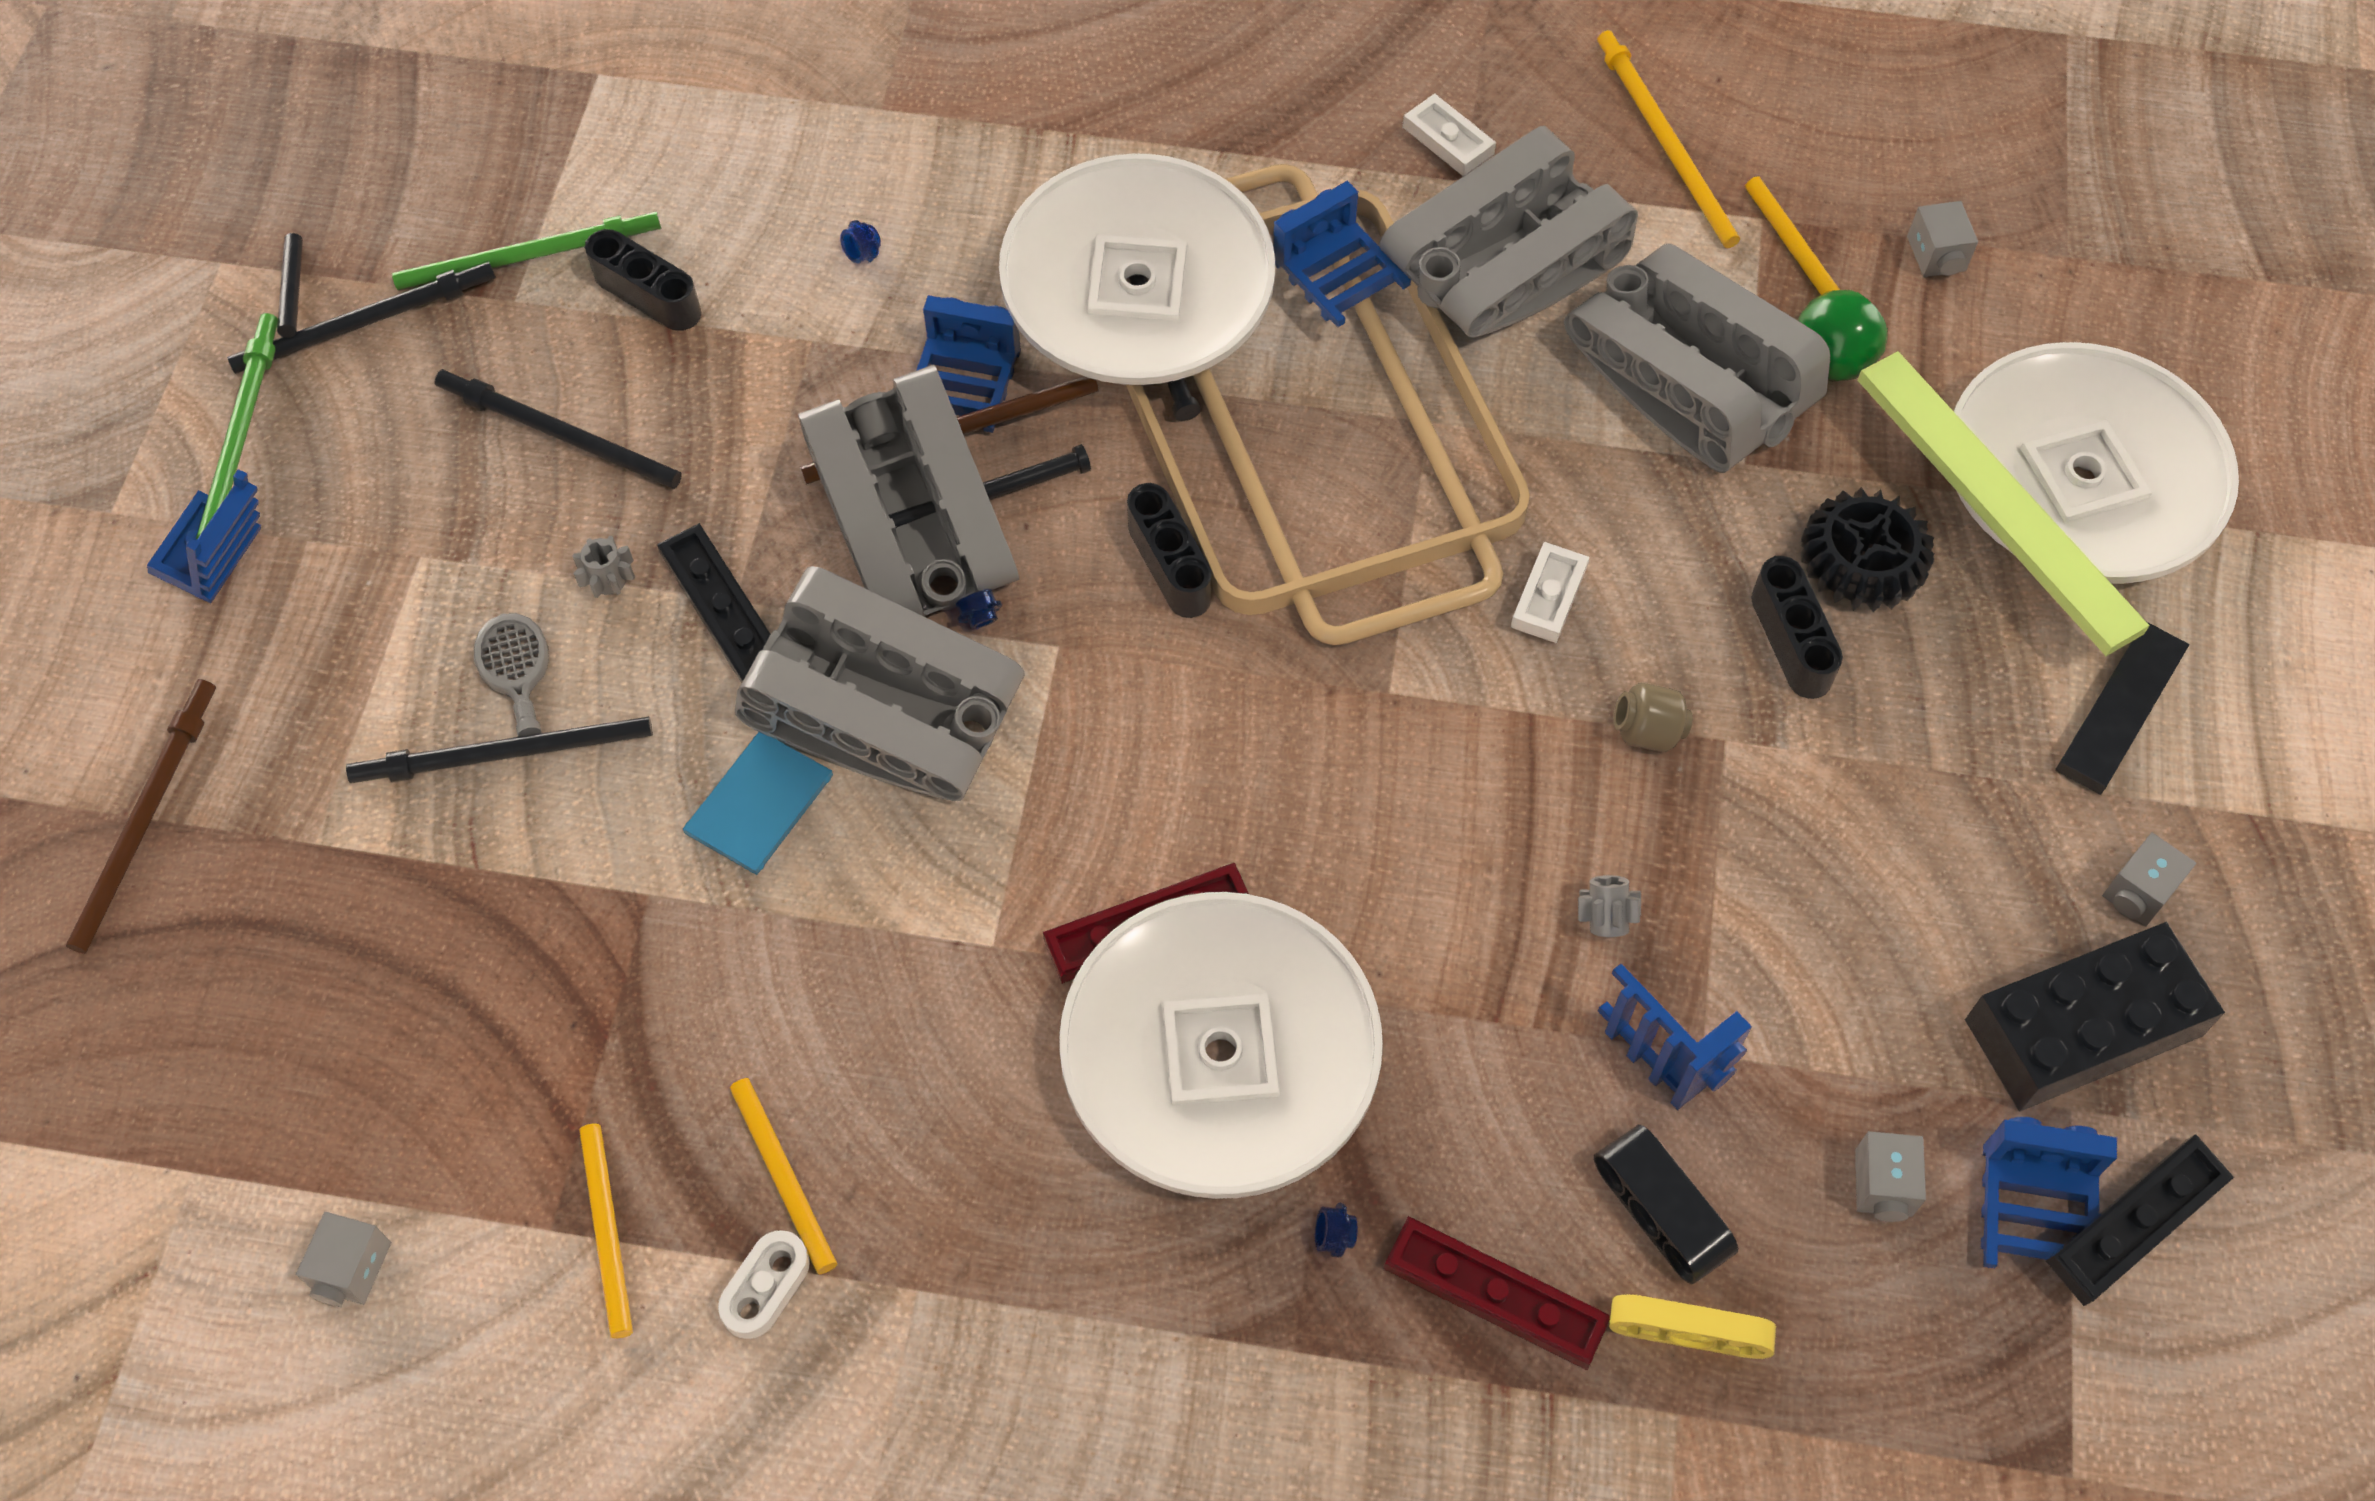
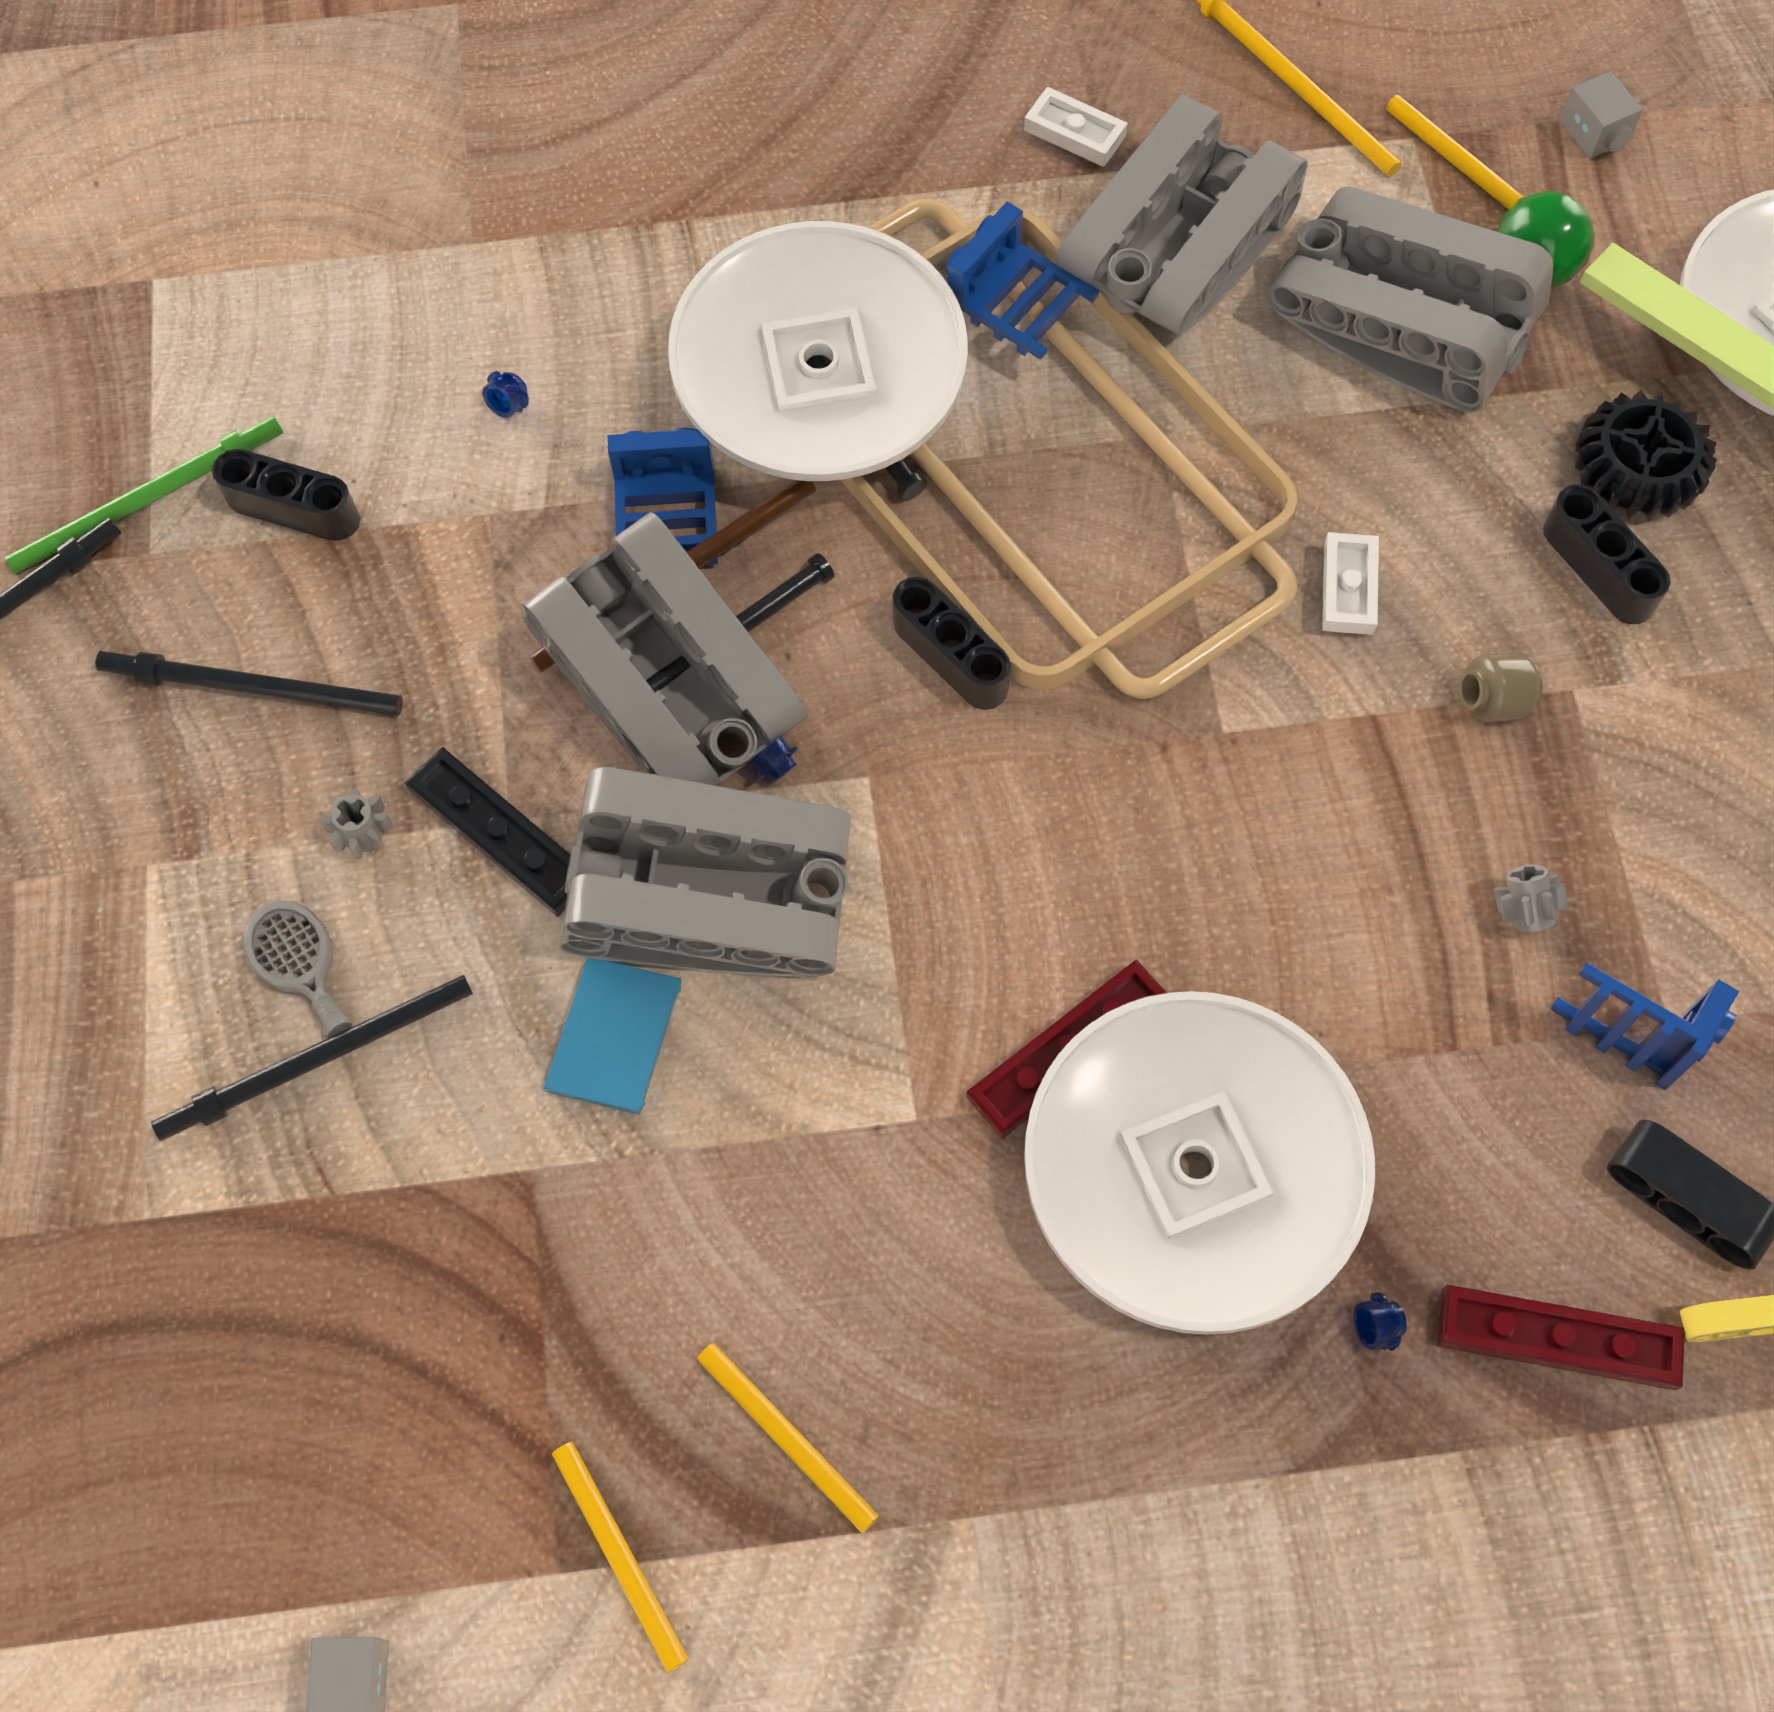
camera: 15 degrees left, 5 degrees up
(763, 1286) = (812, 1565): white plate -> none

